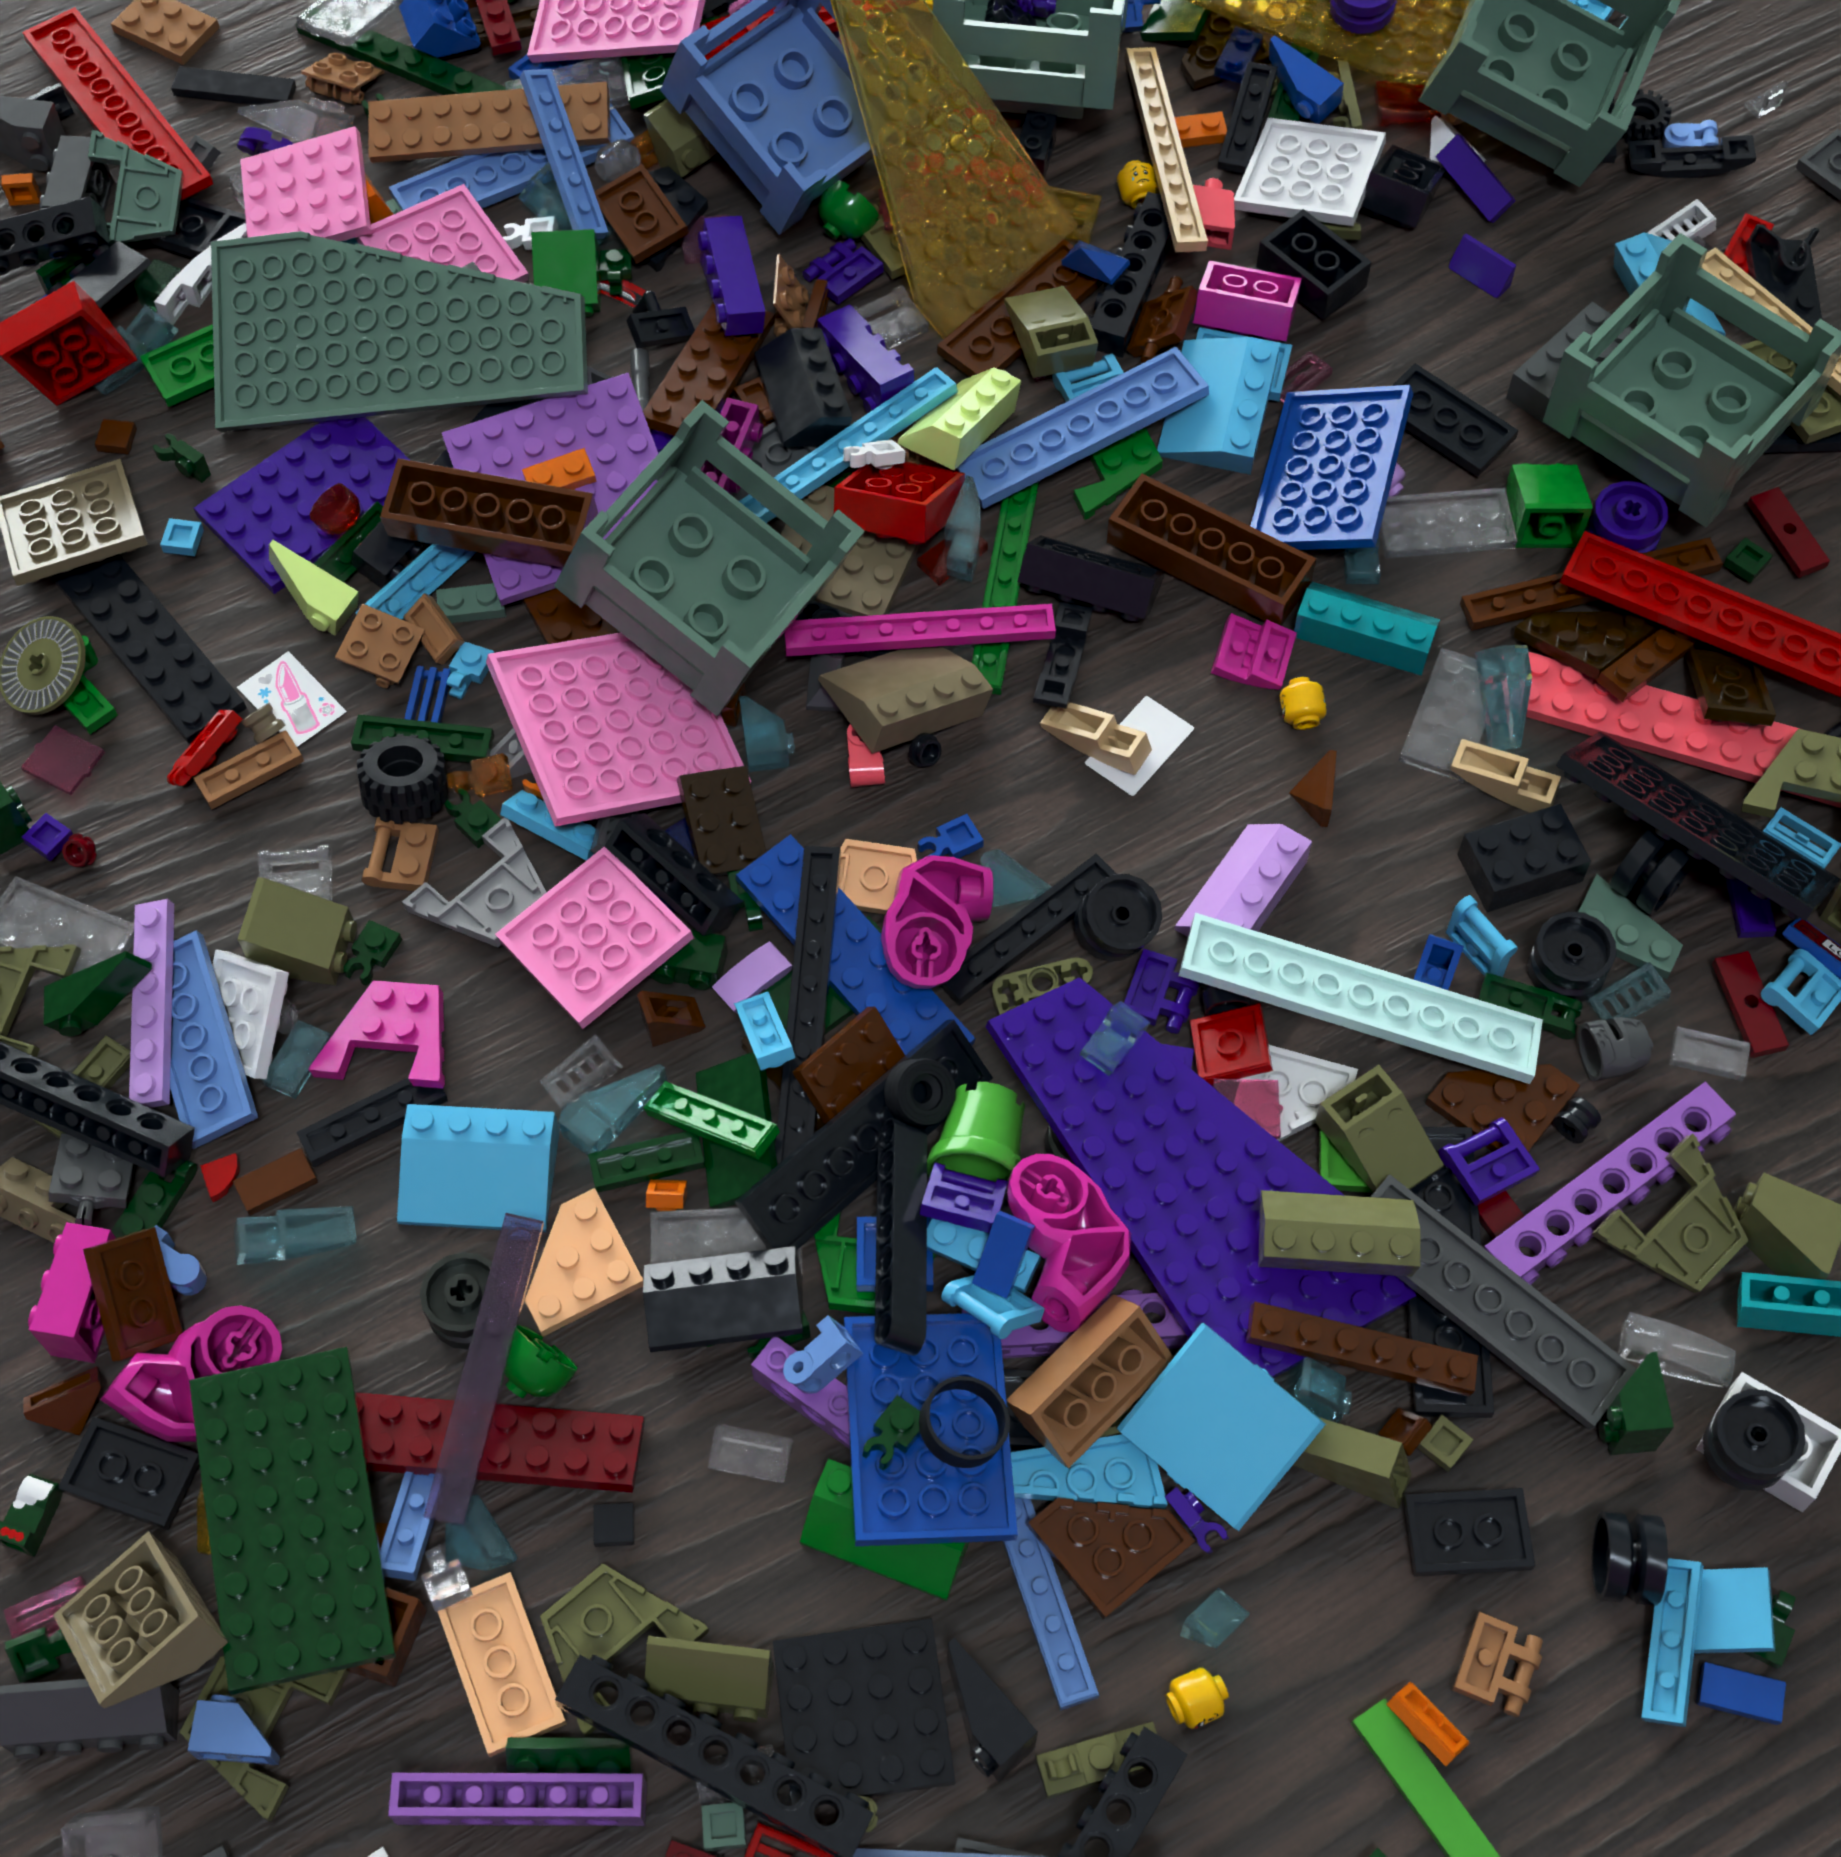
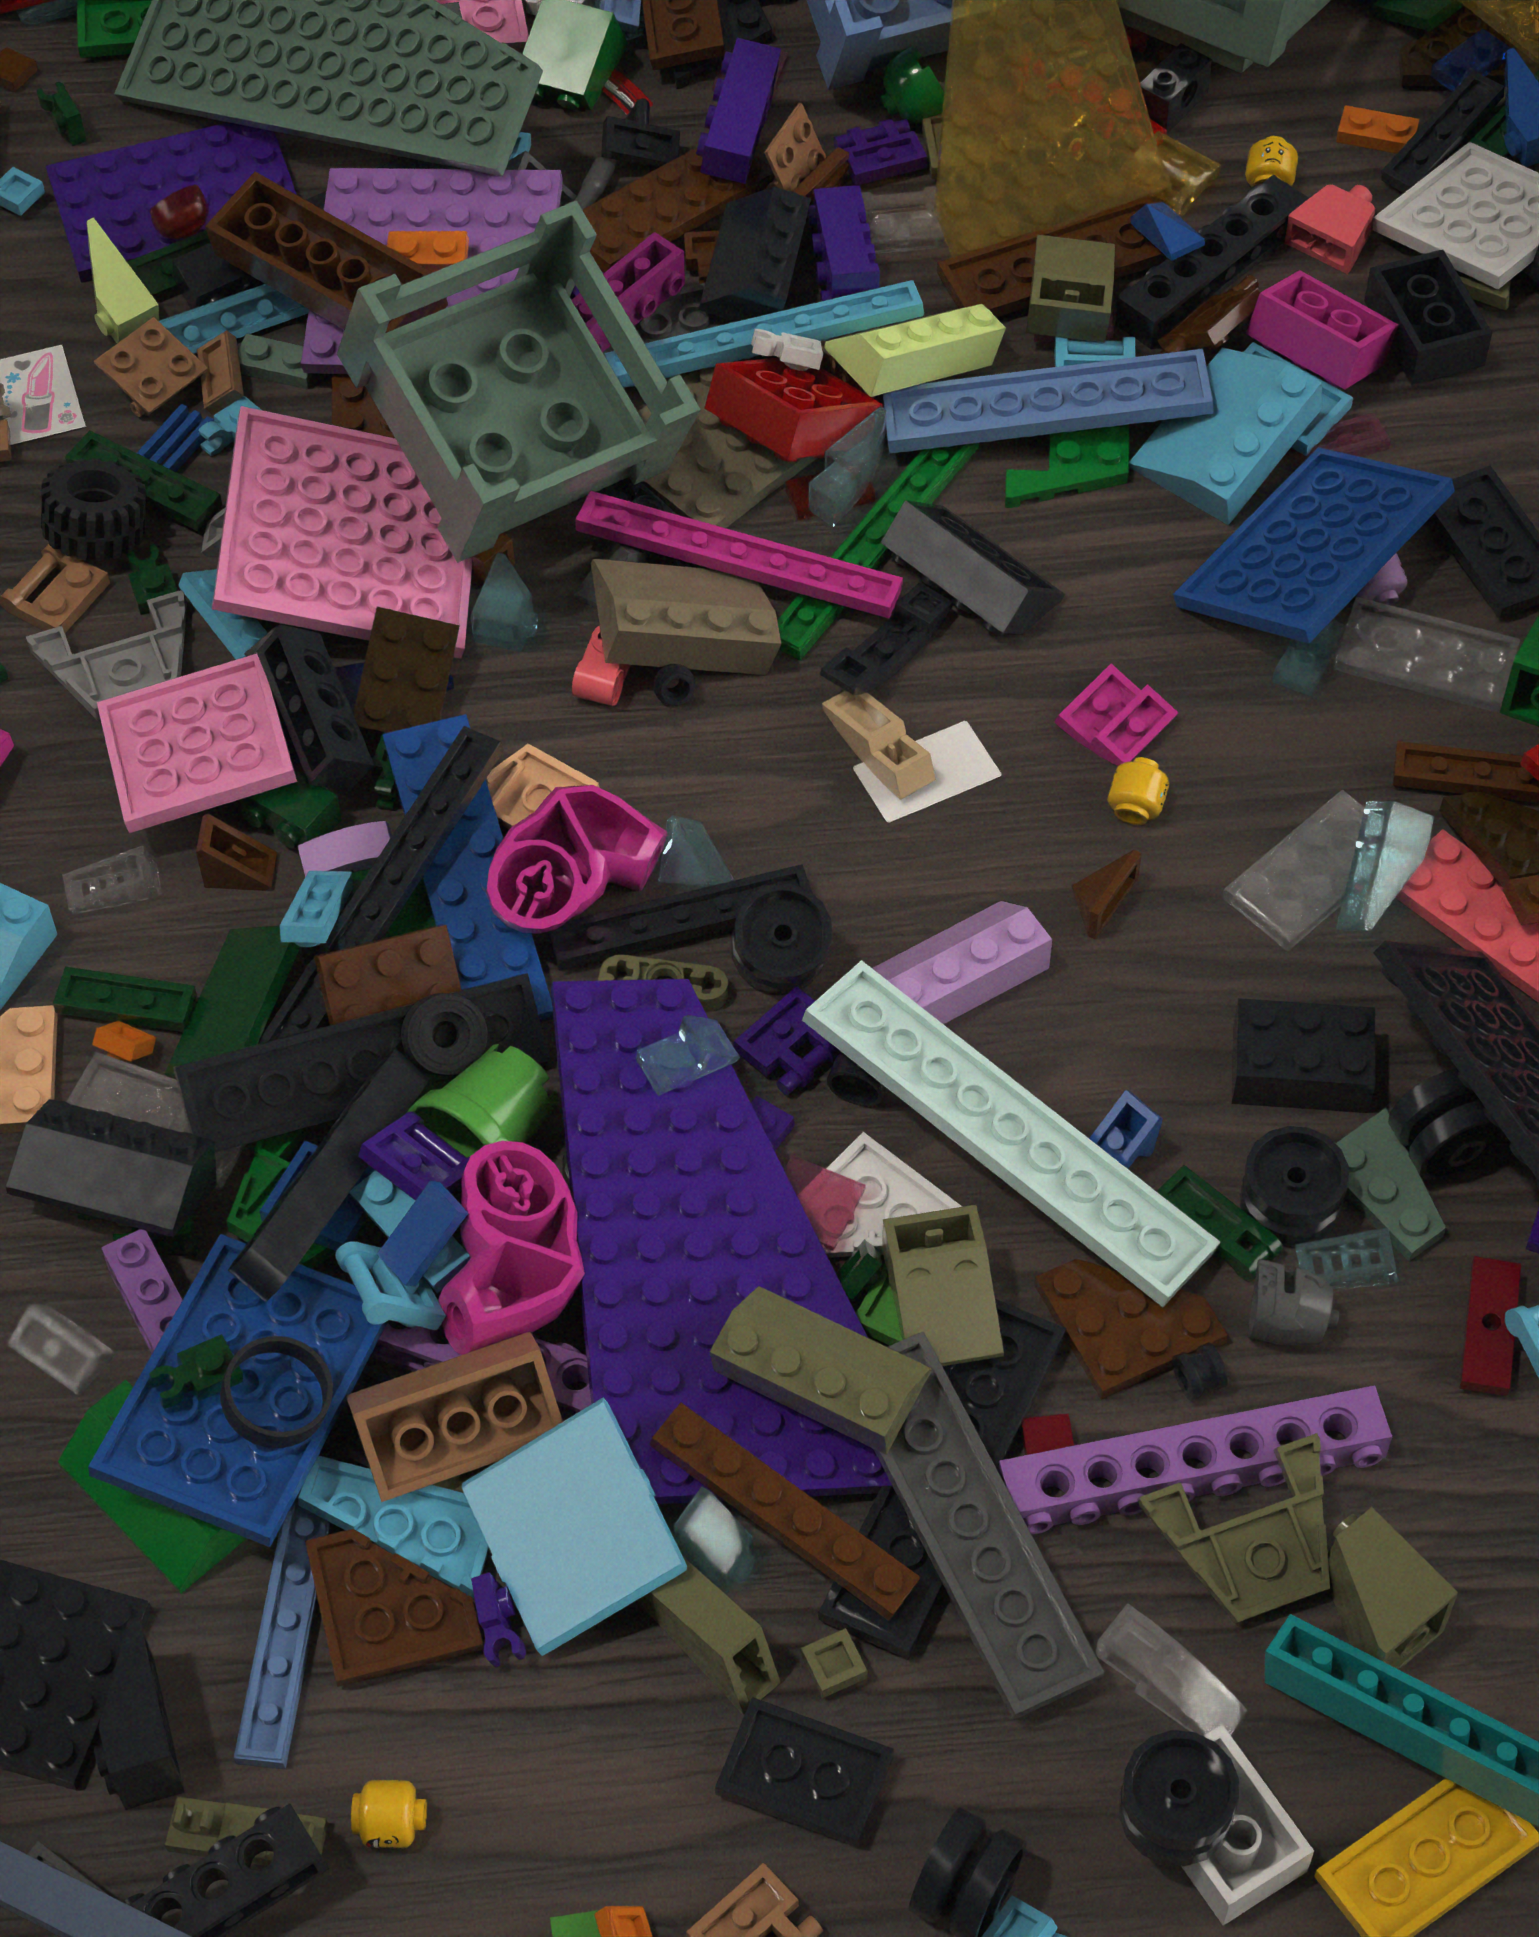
camera: 25 degrees right, 5 degrees down
(487, 776) = (187, 542): clear orange plate -> none
(606, 1112) = (116, 930): clear light blue slope -> none
(615, 267) = (629, 67): dark green plate -> none
(712, 1120) = (211, 980): green tile -> none
(822, 1358) = (168, 1263): medium blue leg -> none
(953, 838) = (655, 792): blue plate -> none
(1166, 150) = (1318, 137): tan plate -> none
(1210, 550) = (1123, 586): reddish brown brick -> none
(1214, 1620) = (455, 1735): clear light blue slope -> none
(1231, 1044) = (837, 1127): red tile -> none
(1308, 1143) = (860, 1270): none -> dark green plate
(1365, 628) = (1263, 735): teal slope -> none
(1406, 1428) = (793, 1629): reddish brown tile -> none
(1480, 939) = (1193, 1121): medium azure plate -> none
(1495, 1171) = (1061, 1384): dark purple plate -> none
(1505, 776) = (1333, 957): tan slope -> none
(1640, 1412) = (1071, 1715): dark green slope -> none
(1710, 1053) = (1408, 1362): clear plate -> none

